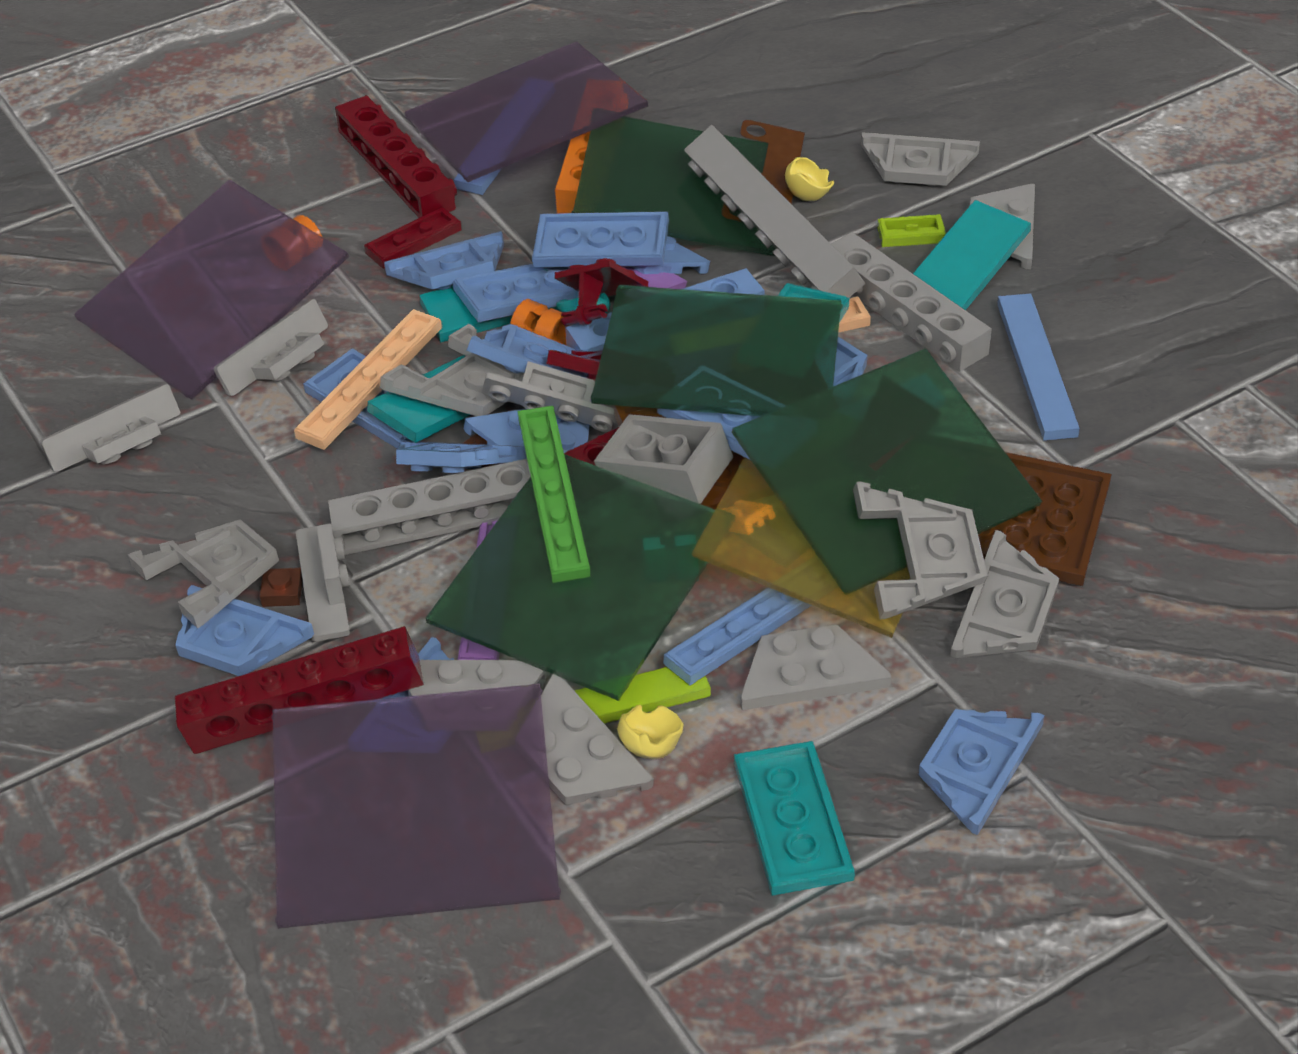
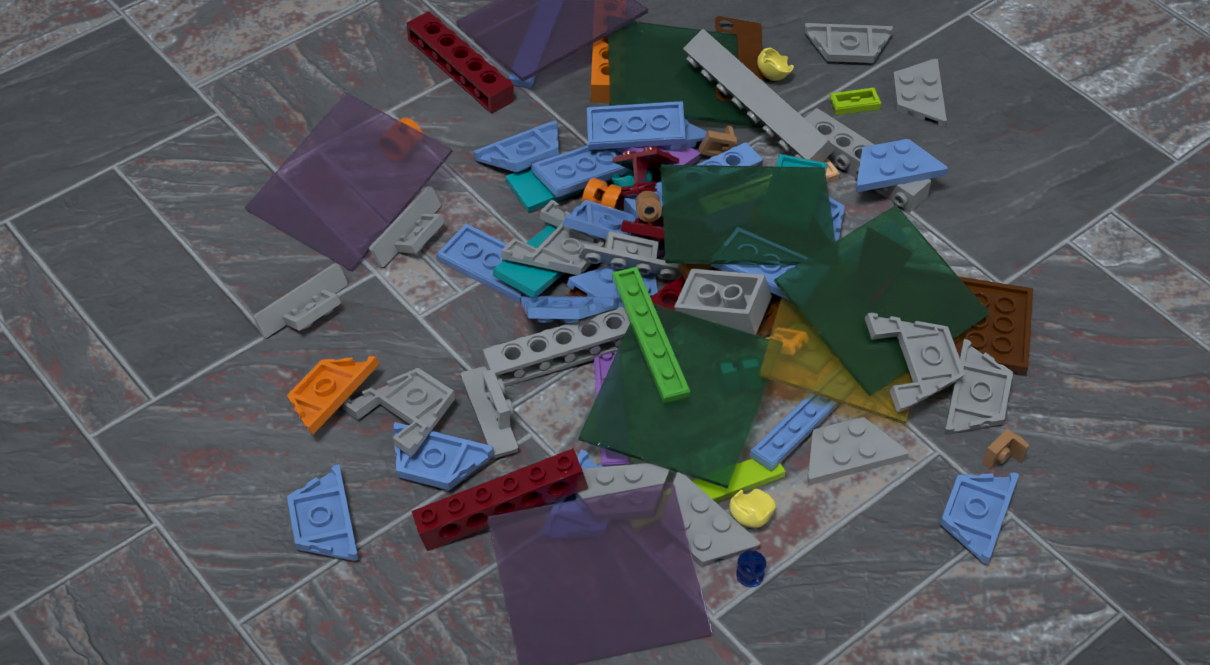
camera: 10 degrees left, 5 degrees up
(63, 698) = (322, 517): none -> medium blue wing
(113, 536) = (328, 388): none -> orange wing
(281, 587) = (460, 418): copper plate -> none
(363, 381) = (485, 248): light nougat tile -> none
(413, 236) = (487, 127): dark red tile -> none
(593, 325) = (645, 200): none -> medium nougat brick
(624, 804) = (755, 563): none -> clear blue wheel
(708, 266) = (717, 143): none -> medium nougat bracket
(793, 818) = (860, 562): teal tile -> none
(944, 305) = (896, 164): none -> medium blue wing
(972, 252) = (905, 113): teal tile -> none
(1029, 676) = (1004, 446): none -> medium nougat bracket
(1038, 367) = (967, 209): medium blue tile -> none

